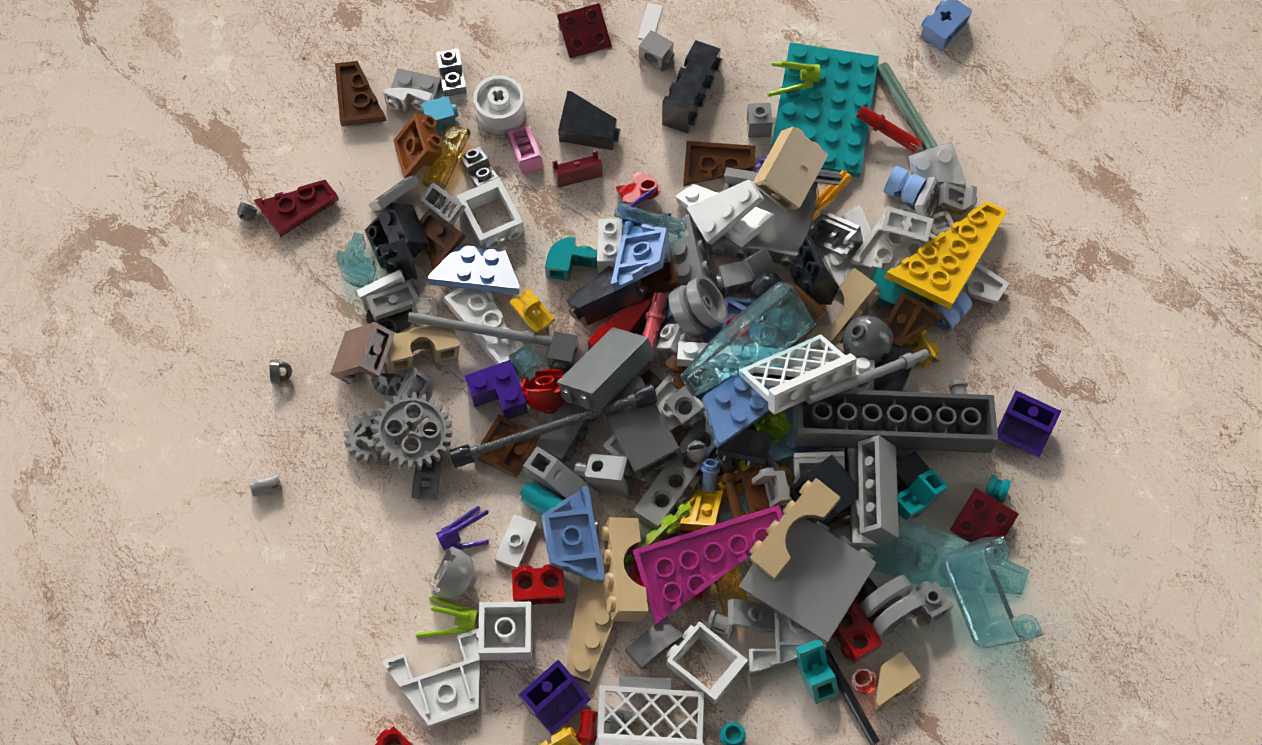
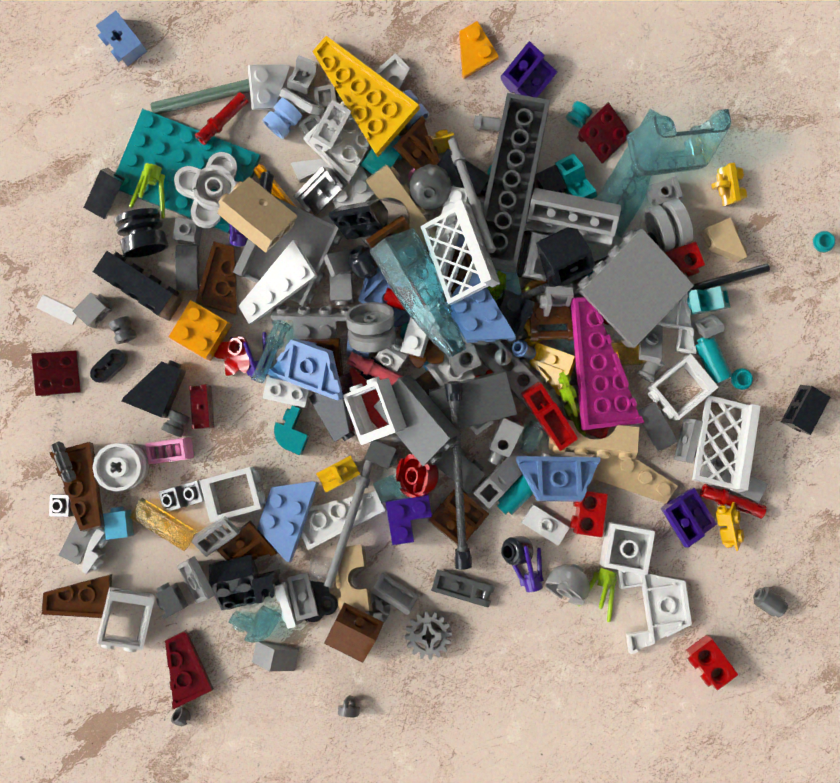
camera: 80 degrees left, 20 degrees up
(265, 485) = (453, 732): light grey pin -> none
(323, 291) = (275, 656): none -> light grey slope
(366, 136) = (127, 596): none -> white window
(368, 177) = (170, 599): none -> dark grey brick
(418, 144) = (148, 549): dark orange plate -> none
(427, 446) = (452, 587): light grey gear -> none
(472, 71) = (84, 490): none -> reddish brown wing
(478, 503) = (513, 550): none -> black head
(494, 51) = (63, 462): none -> dark grey axle
(555, 147) = (174, 425): none -> dark grey wheel
(600, 78) = (105, 363): none -> black beam
(601, 313) = (360, 416): none -> white window
(613, 504) = (532, 437): none -> clear light blue head
(640, 509) = (549, 416): none -> red slope
(641, 81) = (122, 330): none -> dark grey wheel
(657, 151) = (200, 330): none -> light orange brick
(722, 126) = (187, 267): none -> flat silver slope
(725, 209) = (283, 284): white wing -> none
(746, 75) = (141, 232): none -> black wheel
(748, 694) = (713, 359): none -> teal brick
(780, 34) = (103, 192): none -> black hinge
(786, 682) = (709, 326): none -> light grey plate
(812, 117) = (198, 185): none -> white plant
(815, 502) = (588, 269): tan arch -> none
(861, 675) = (718, 270): clear red plate -> none
(952, 680) = (728, 184): none -> yellow hips
(1039, 367) = (475, 49): none -> light orange wing

